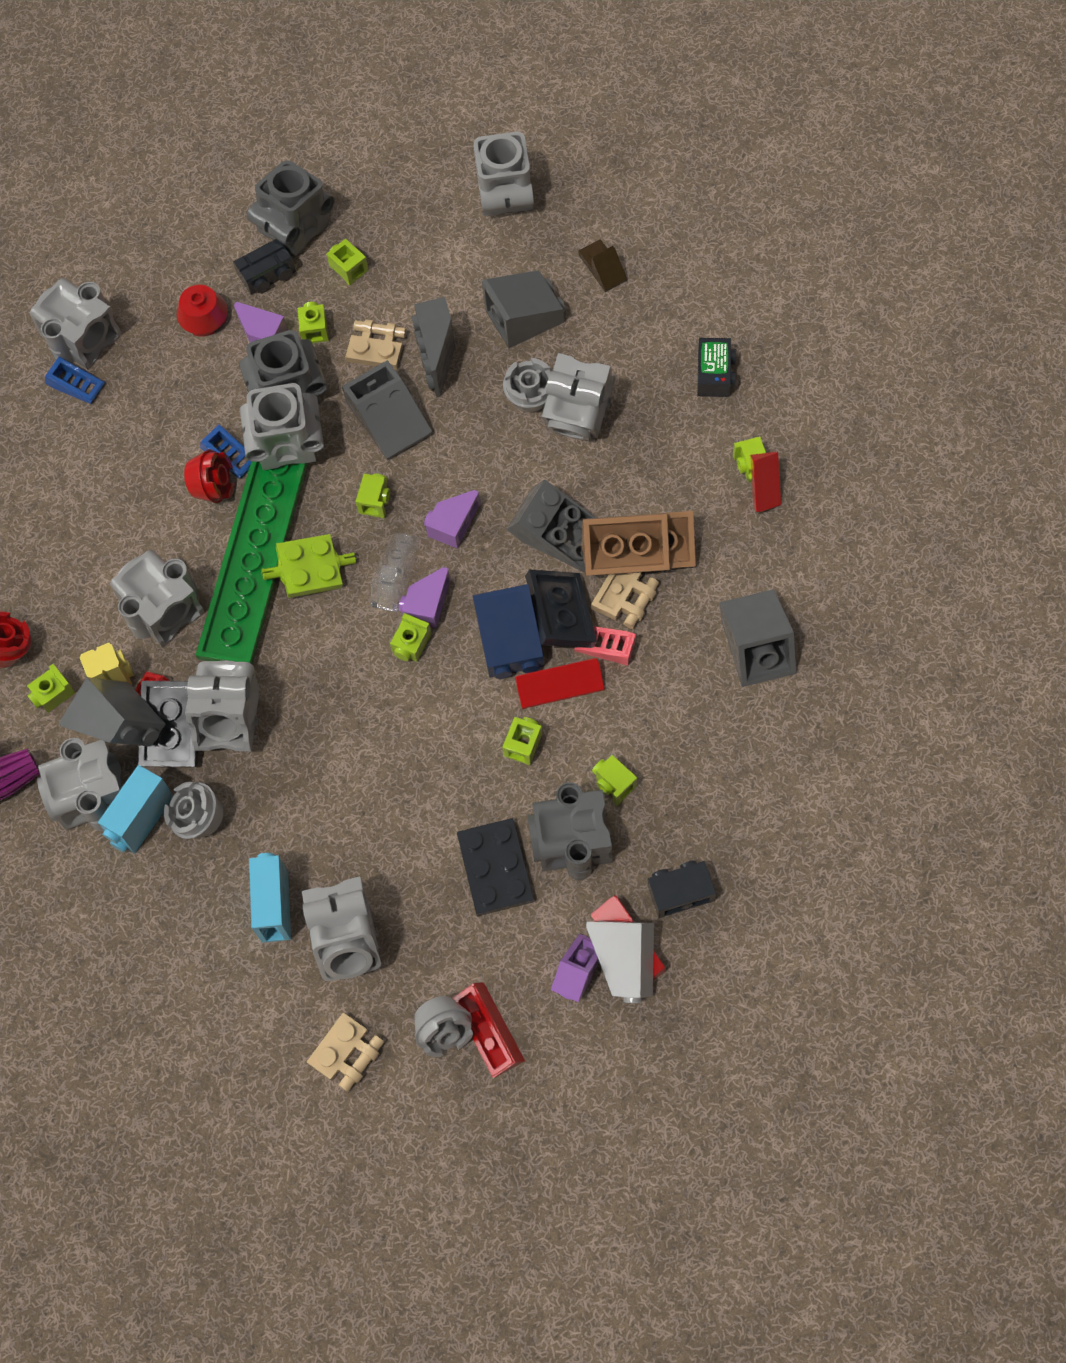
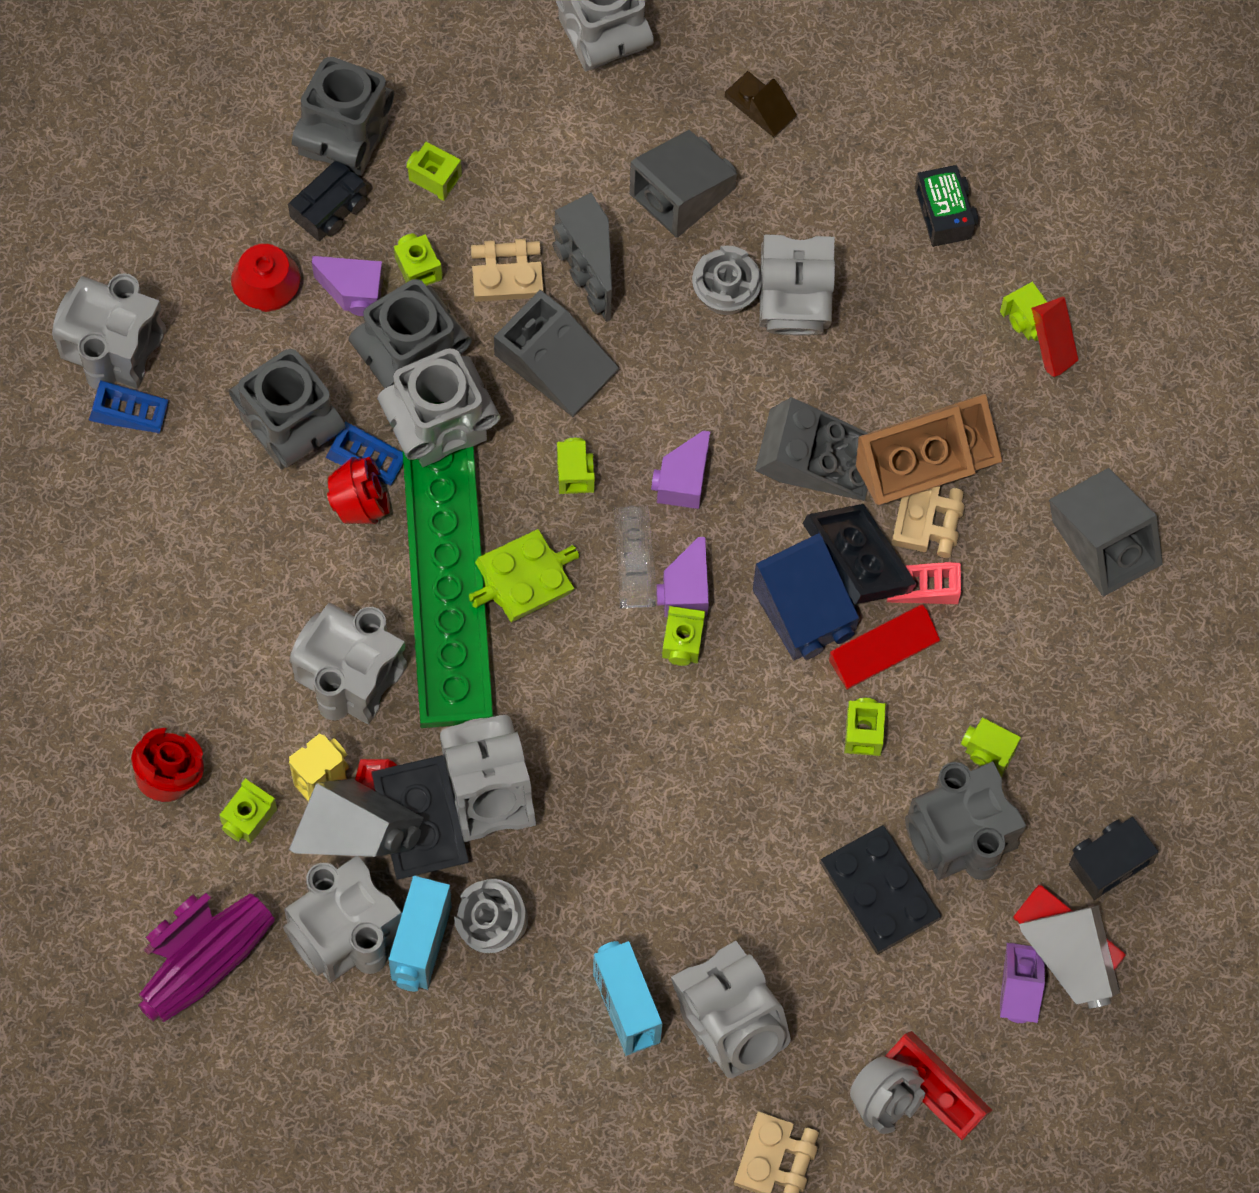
camera: 25 degrees left, 0 degrees up
(176, 403) = (292, 429): none -> dark grey piece

